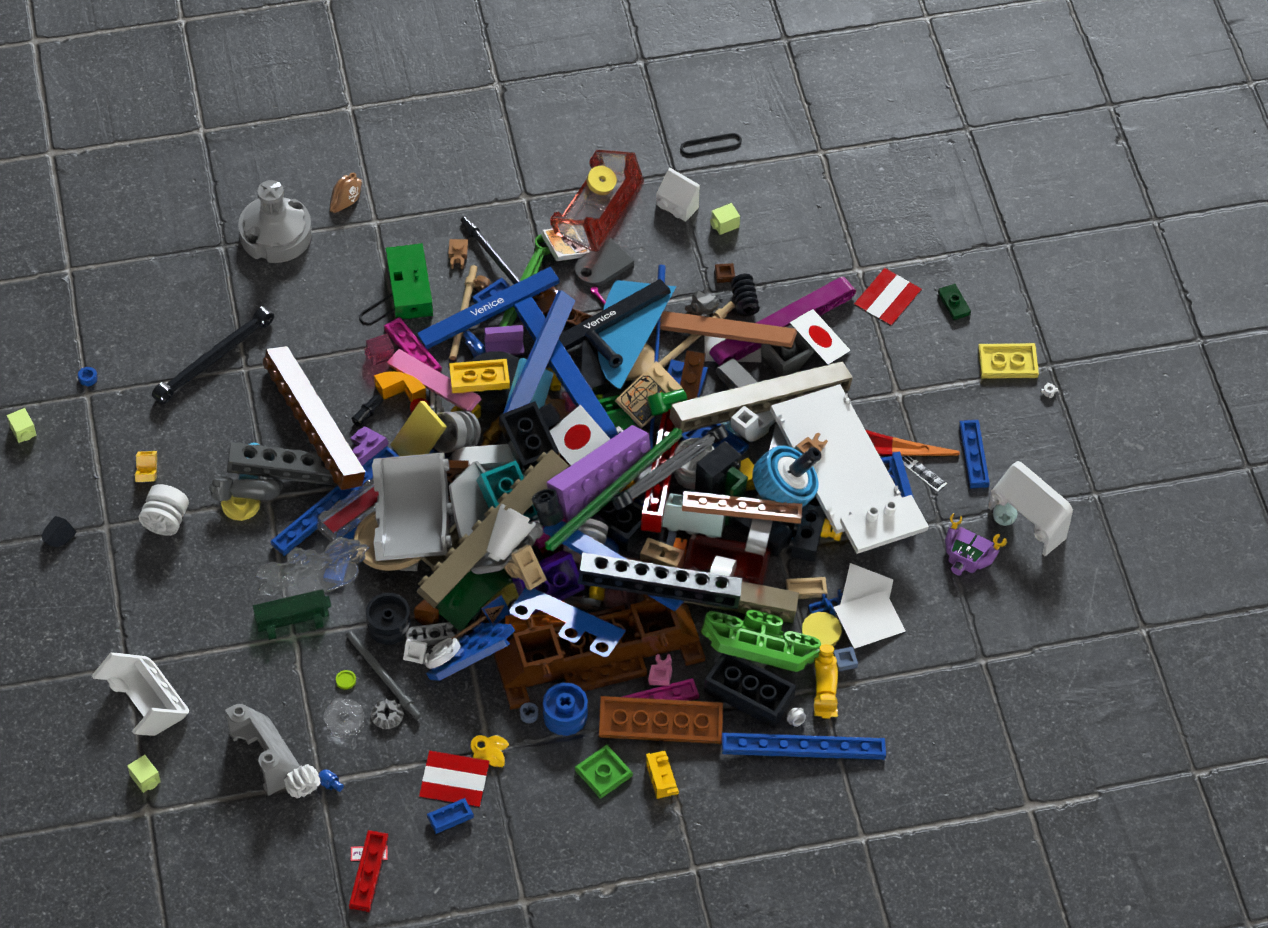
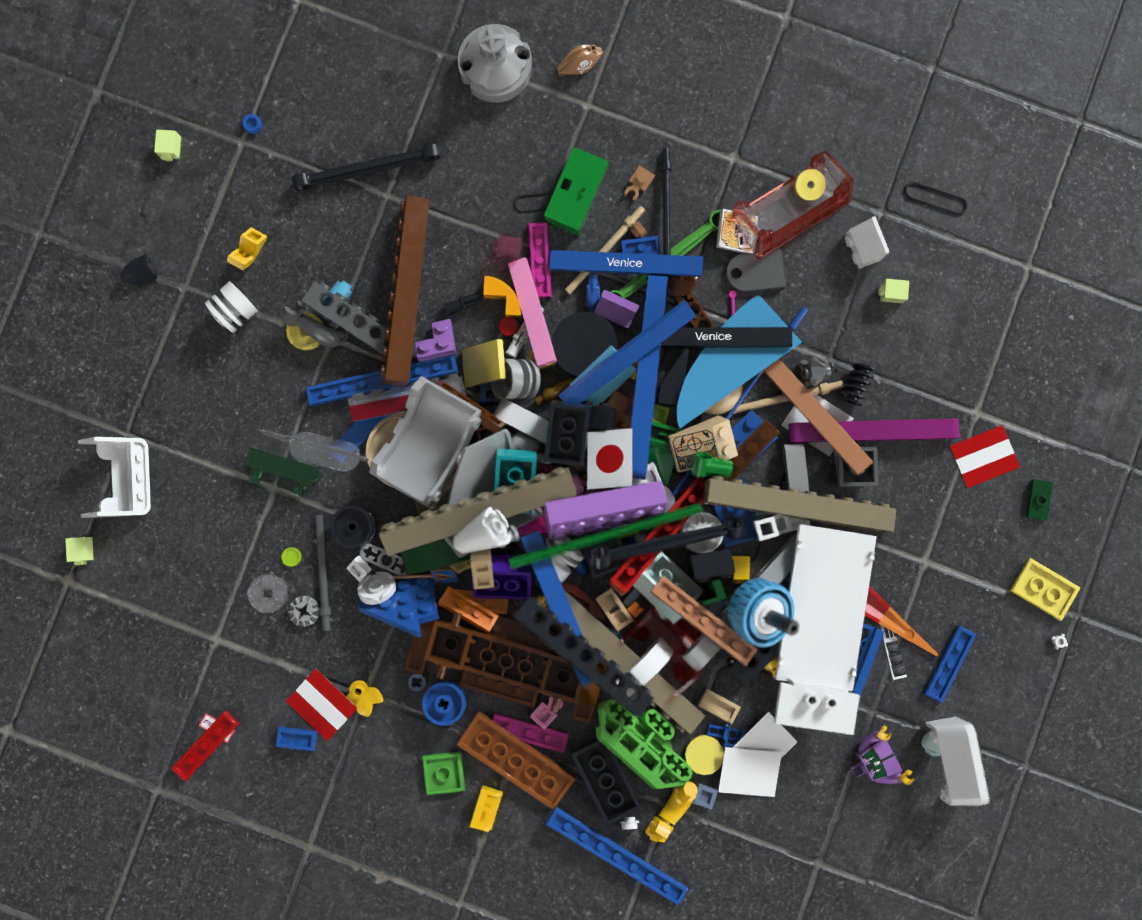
camera: 35 degrees right, 30 degrees up
(277, 758) = (188, 588): light grey windscreen -> none
(302, 781) = (195, 638): white gear -> none
(330, 780) = (222, 645): blue cylinder -> none
(479, 376) = (567, 339): yellow plate -> none
(548, 507) = (533, 524): black wheel -> none
(572, 616) = (497, 636): piece -> none
(606, 351) = (694, 373): black pin -> none
(724, 272) = (857, 345): reddish brown tile -> none
(804, 445) = (802, 591): medium nougat plate -> none
(820, 336) = (893, 471): white sticker -> none

